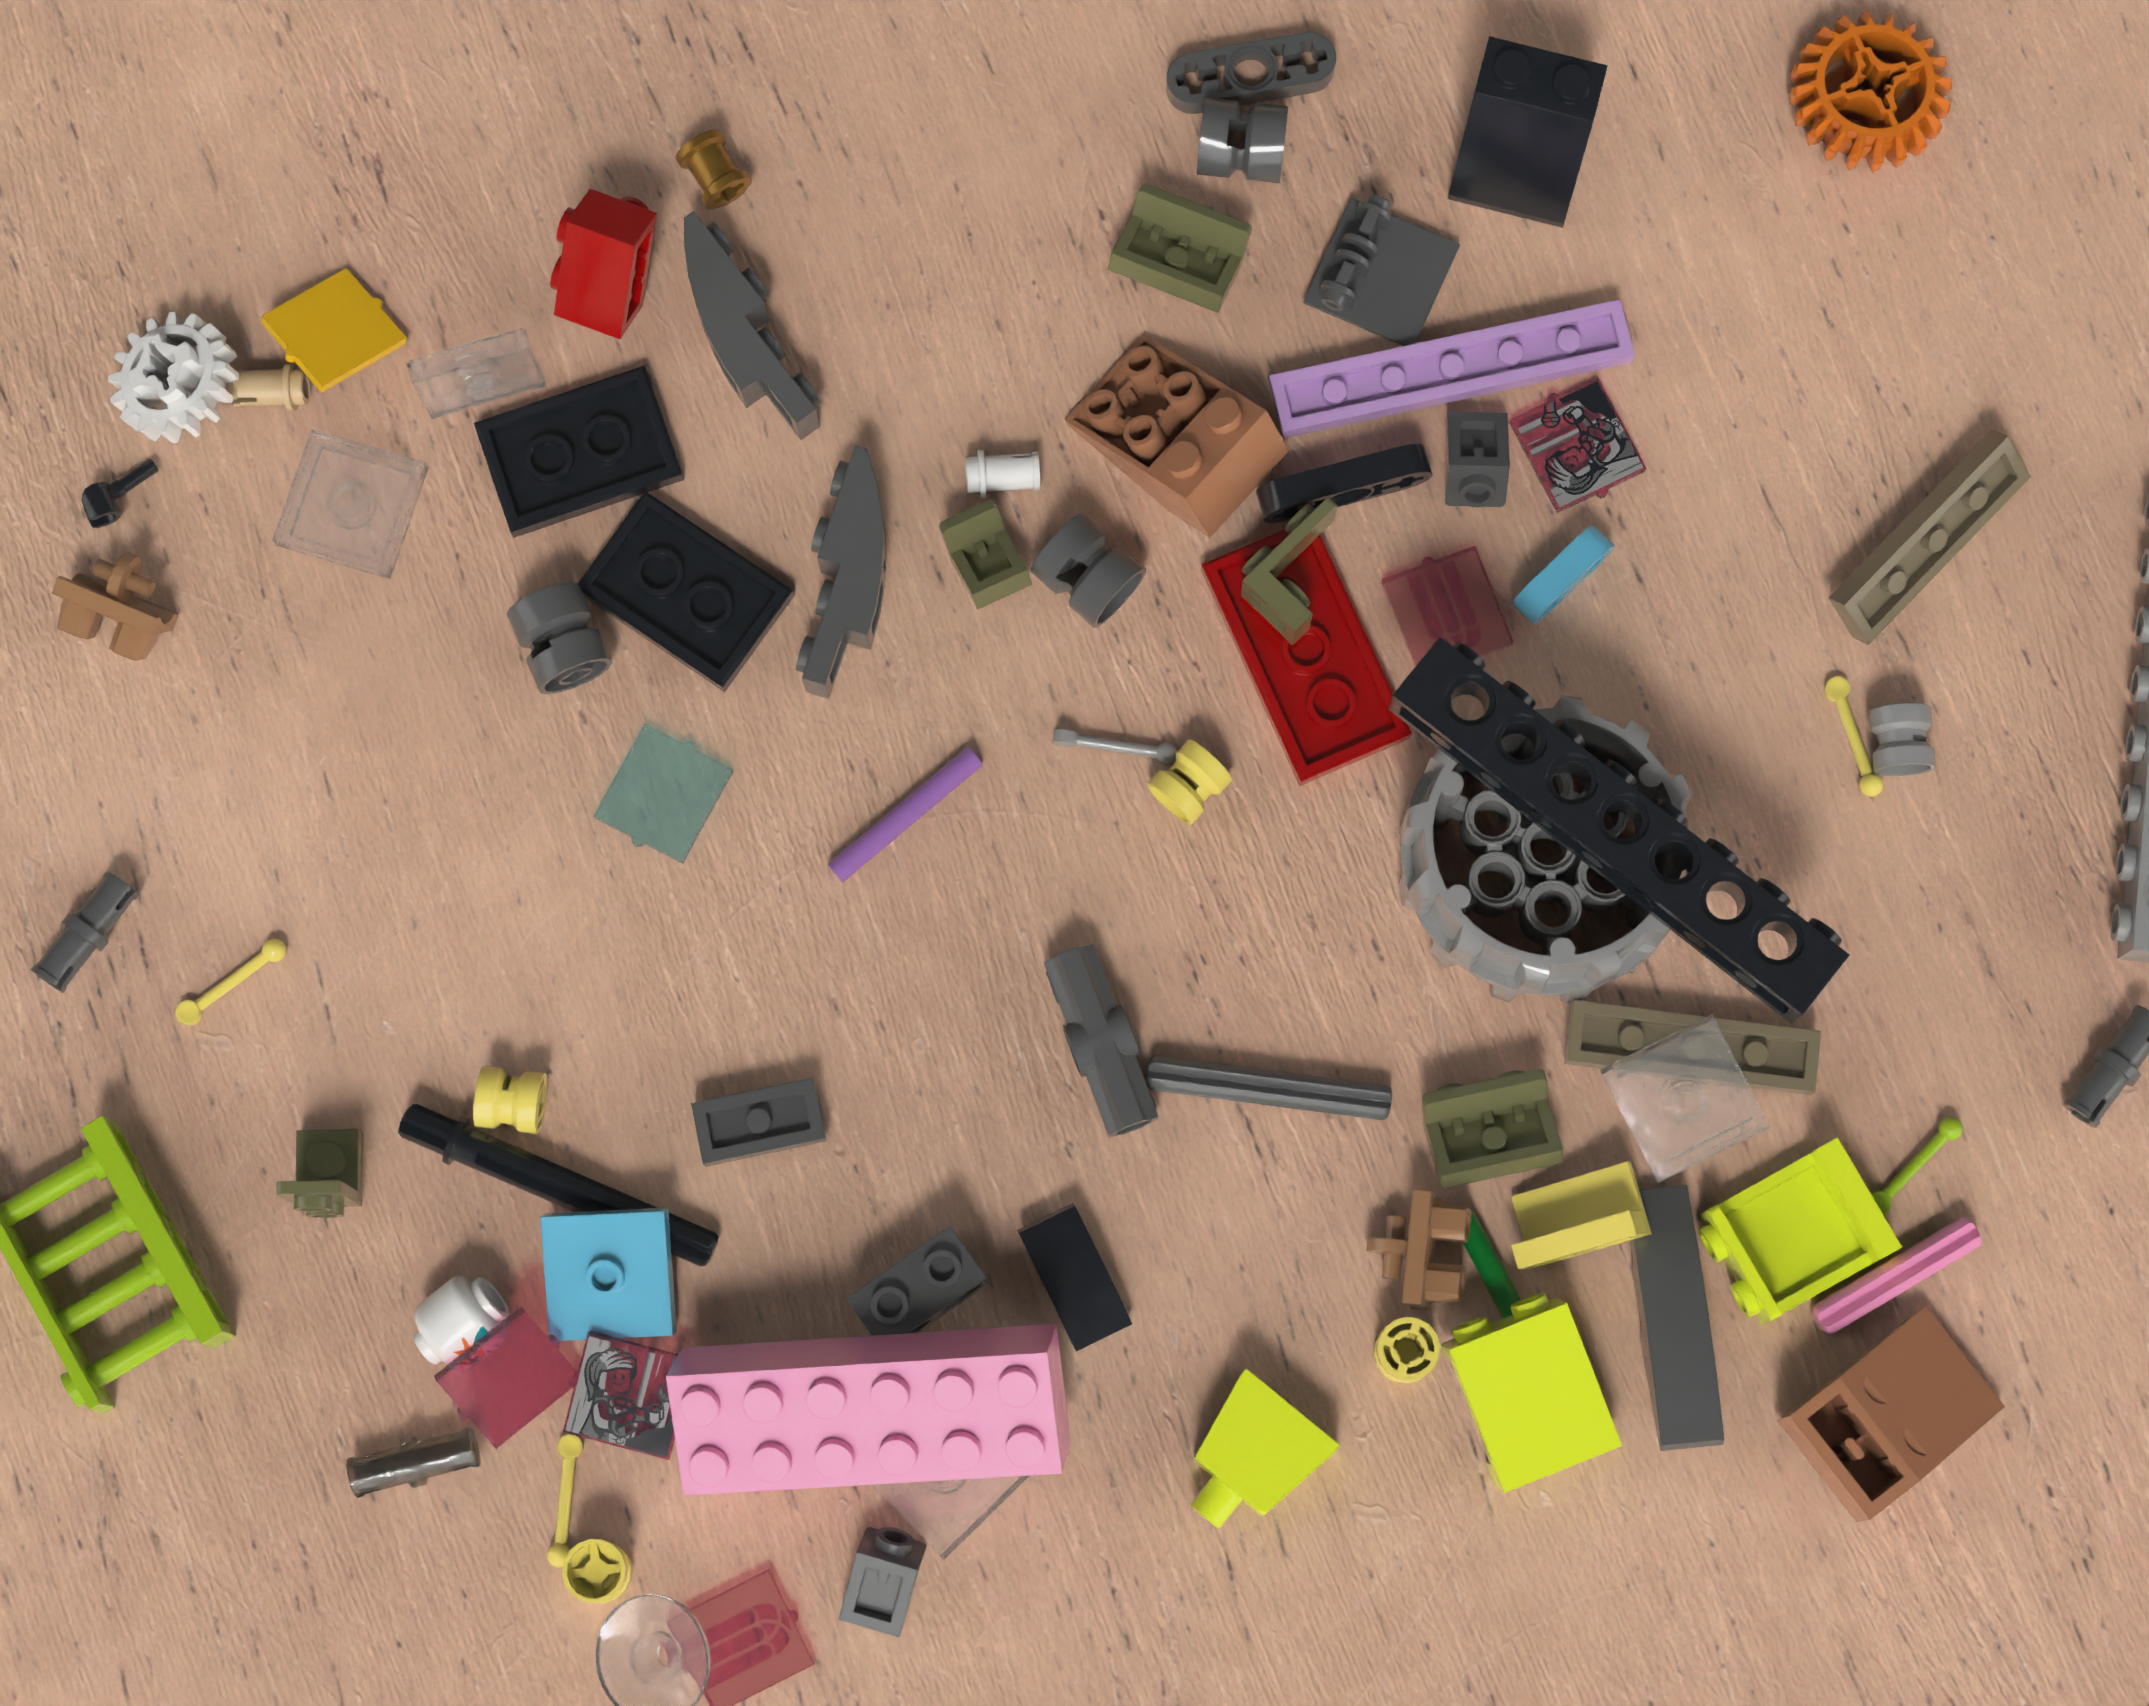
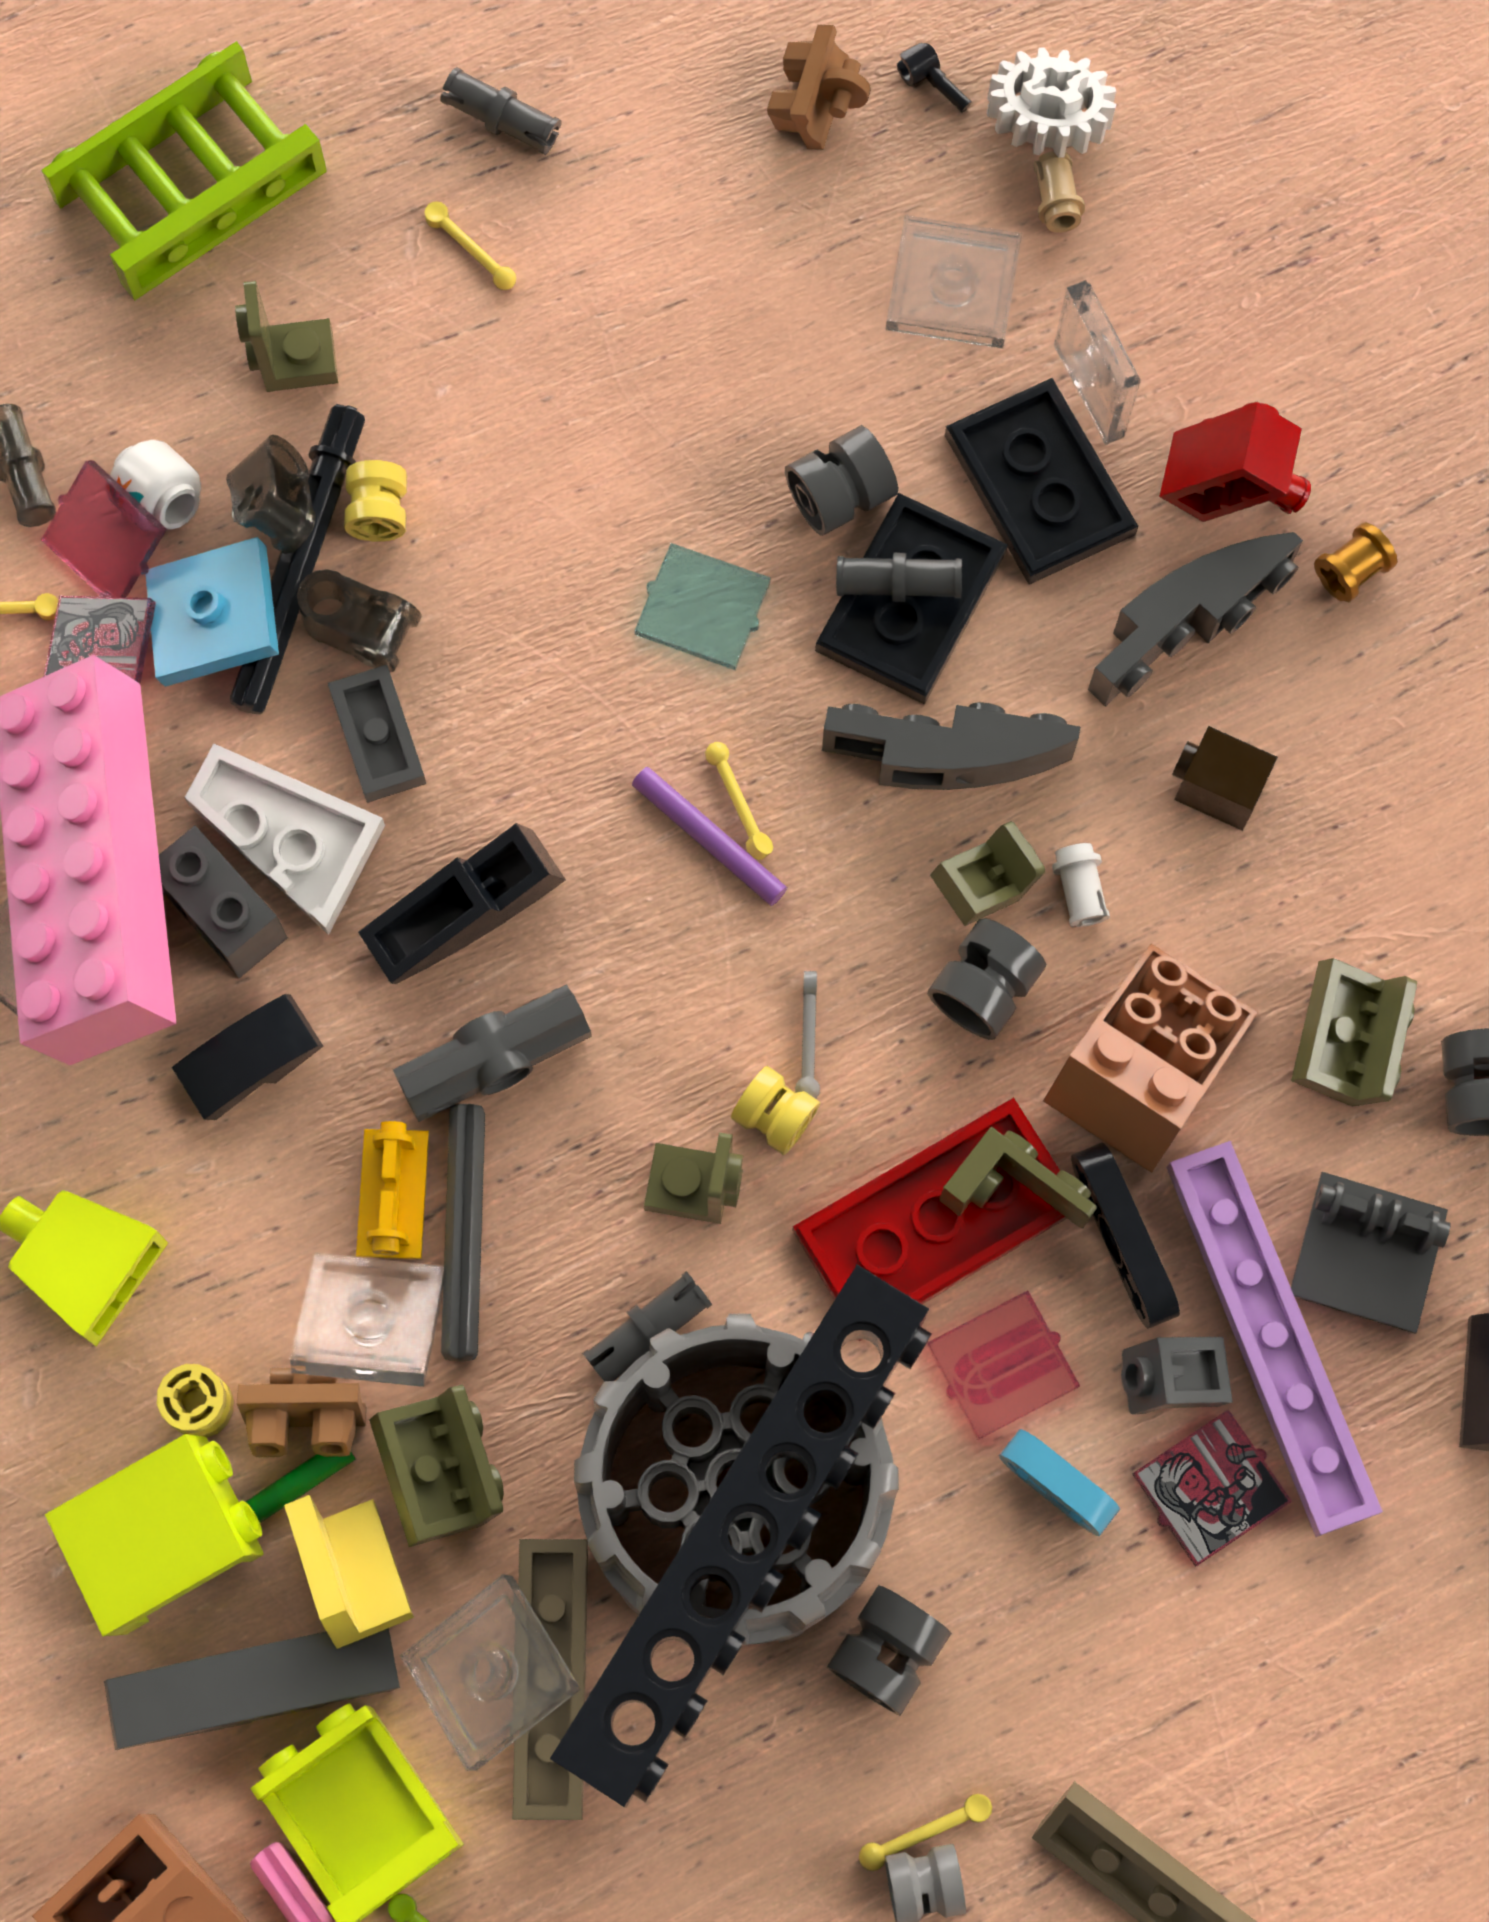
camera: 80 degrees right, 5 degrees down
(333, 330) = (1125, 238): yellow piece -> none
(495, 1198) = (273, 494): none -> clear smoke piece
(638, 1126) = (366, 625): none -> clear smoke piece
(673, 594) = (899, 577): none -> dark grey pin
(848, 1219) = (287, 830): none -> white wing
(915, 325) = (1223, 777): none -> dark brown brick
(919, 769) = (758, 844): none -> light yellow hinge
(948, 1056) = (462, 903): none -> black slope
(1224, 1151) = (392, 1192): none -> yellow hinge
(1249, 861) = (694, 1181): none -> olive bracket
(1348, 1179) = (368, 1320): none -> clear plate
(1382, 925) = (632, 1338): none -> dark grey pin
(1693, 722) = (902, 1629): none -> dark grey wheel

